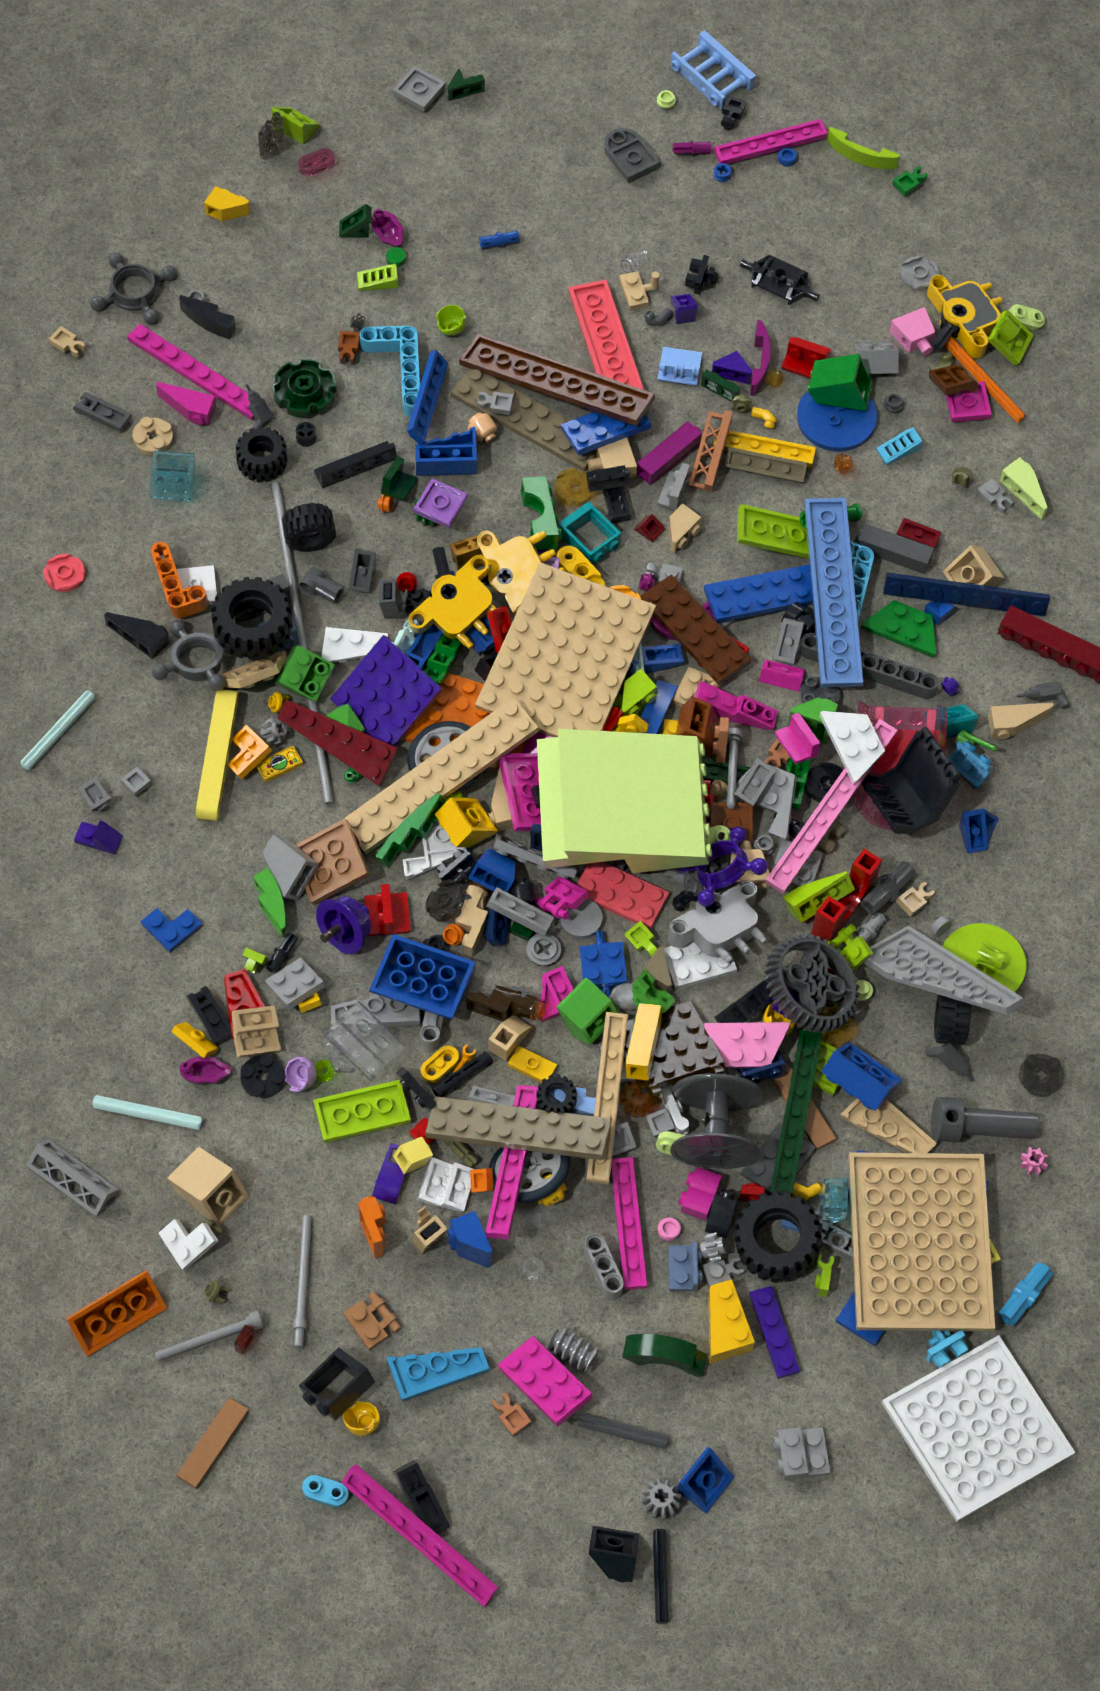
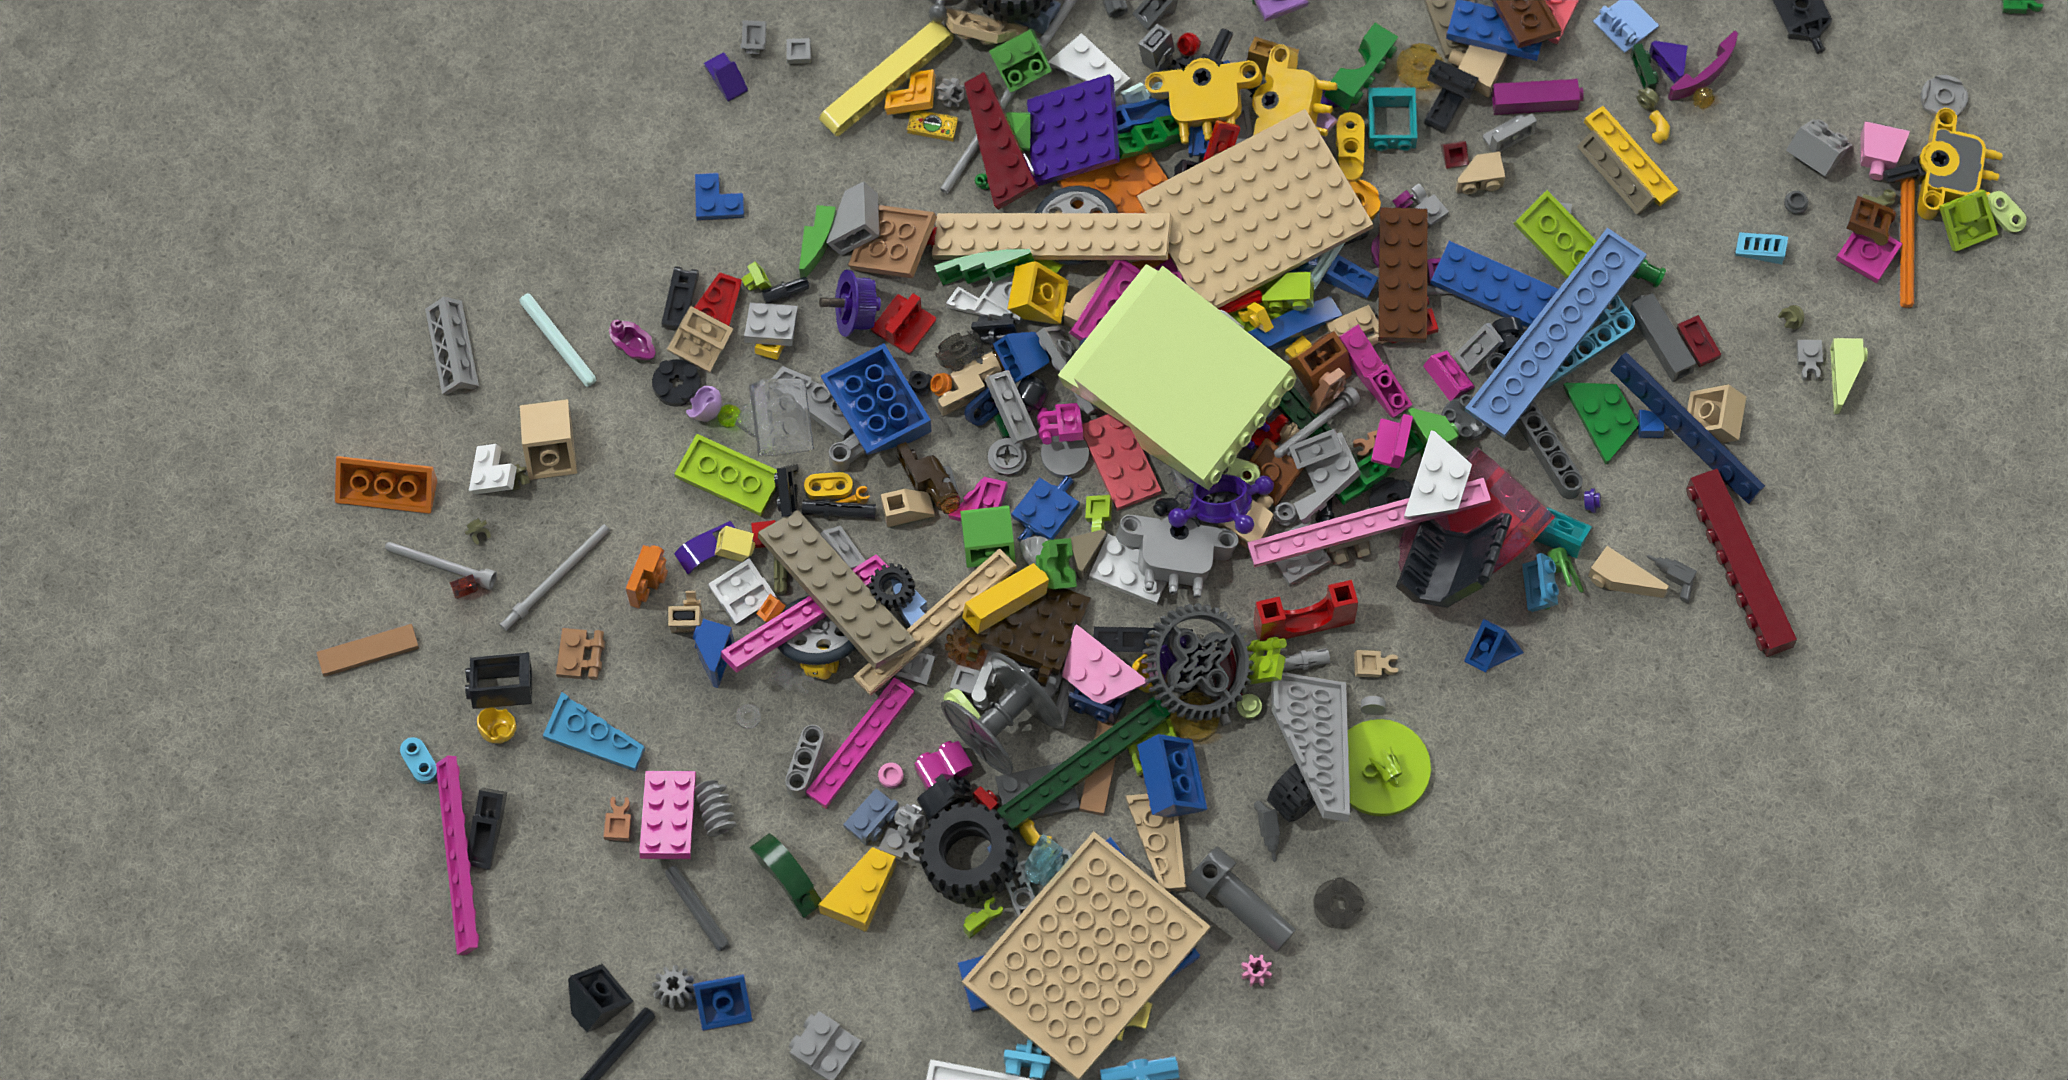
camera: 45 degrees right, 5 degrees up
(194, 1039) = (648, 308): yellow plate -> none
(276, 701) = (978, 67): yellow plate -> none
(531, 1064) = (906, 546): yellow plate -> none
(717, 450) = (1578, 126): nougat fence -> none
(774, 1332) = (897, 931): dark purple plate -> none
(802, 355) = (1752, 99): red bracket -> none
(807, 898) = (1292, 592): lime slope -> none
(835, 426) = (1730, 175): blue plate -> none
(841, 382) = (1757, 146): green slope -> none
(842, 463) = (1690, 223): clear orange plate -> none
(888, 888) = (1356, 635): dark grey piece -> none

